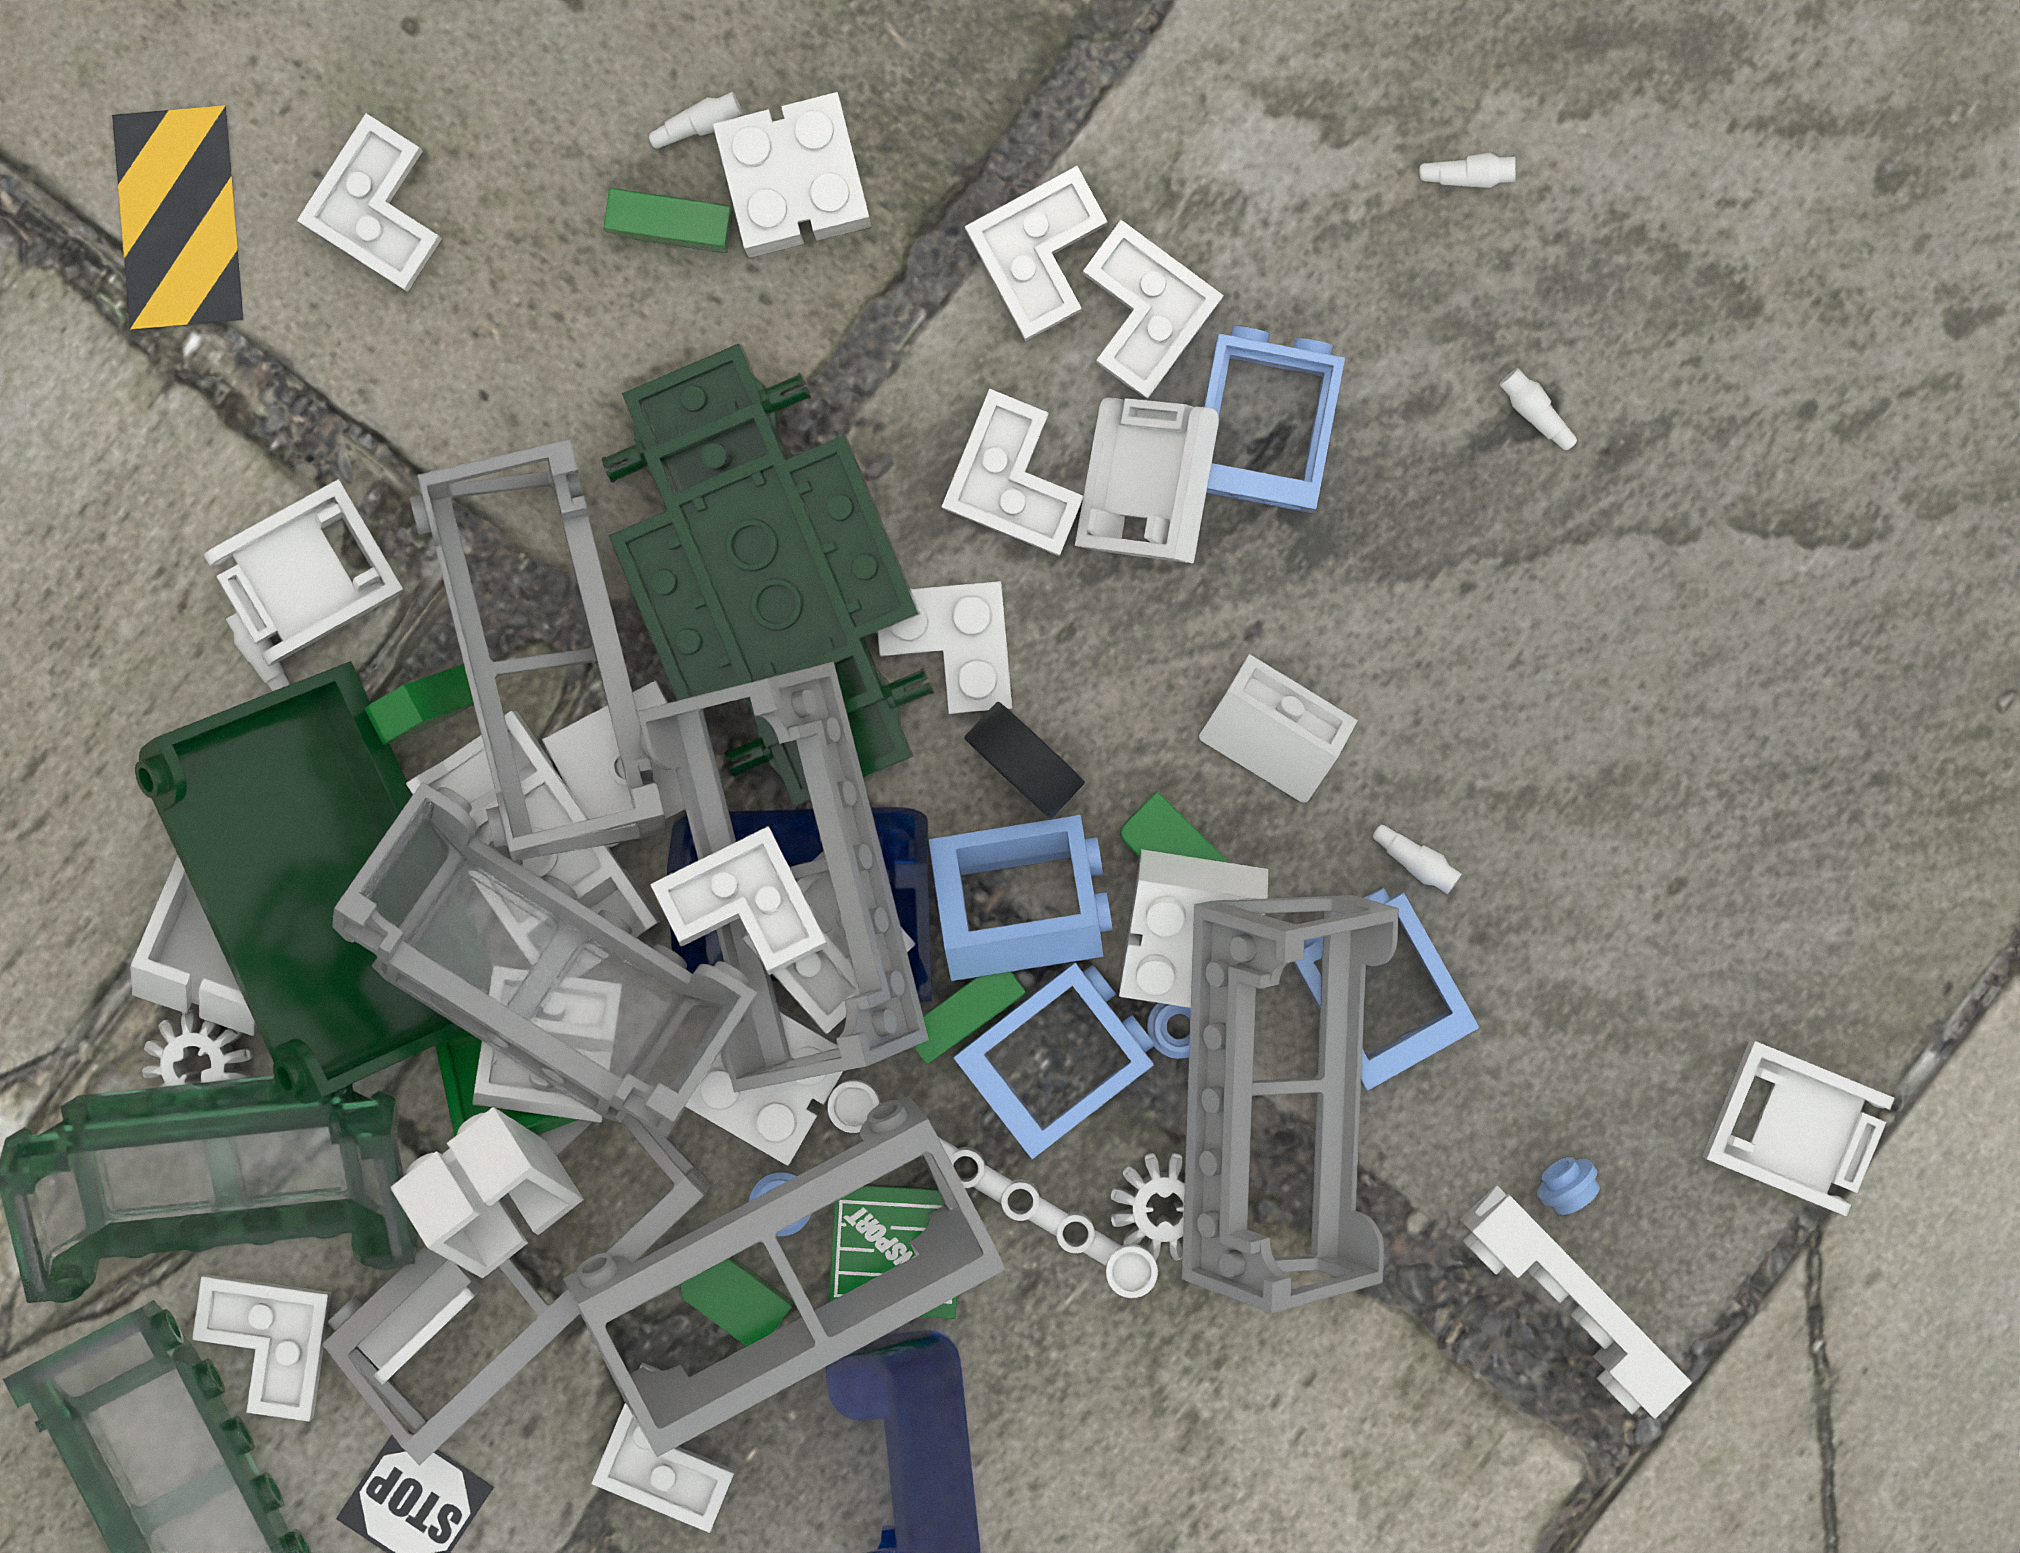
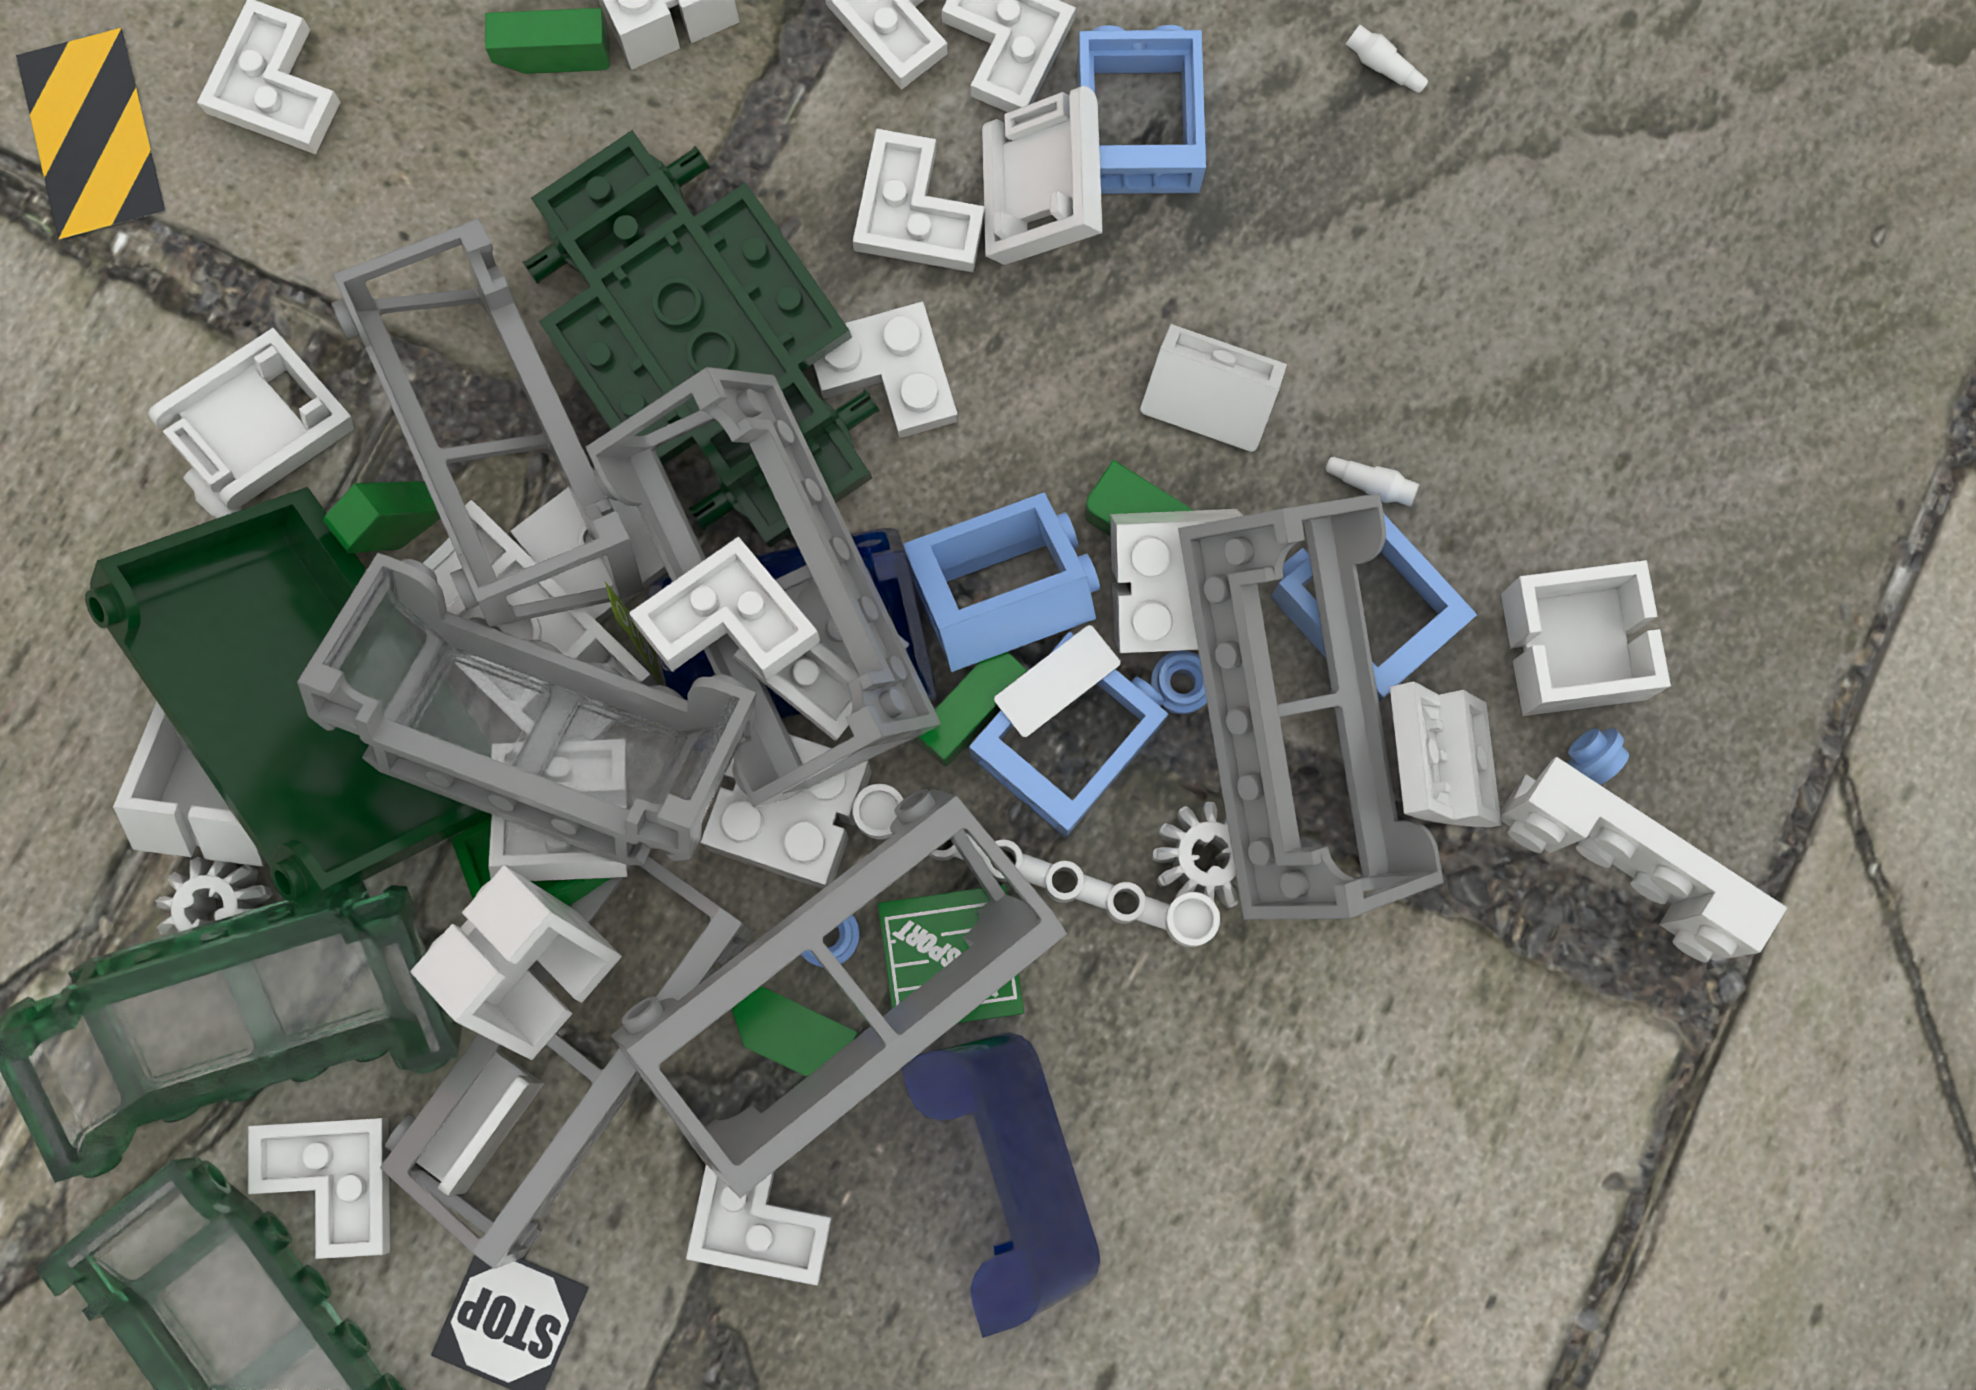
camera: 10 degrees left, 10 degrees down
(647, 874) = (623, 617): none -> lime sticker
(1024, 759) = (979, 449): black tyre -> none
(1052, 1011) = (1057, 681): none -> white sticker
(1416, 1159) = (1445, 756): none -> white slope
(1580, 1071) = (1577, 640): none -> white piece
(1805, 1131) = (1806, 659): white container -> none

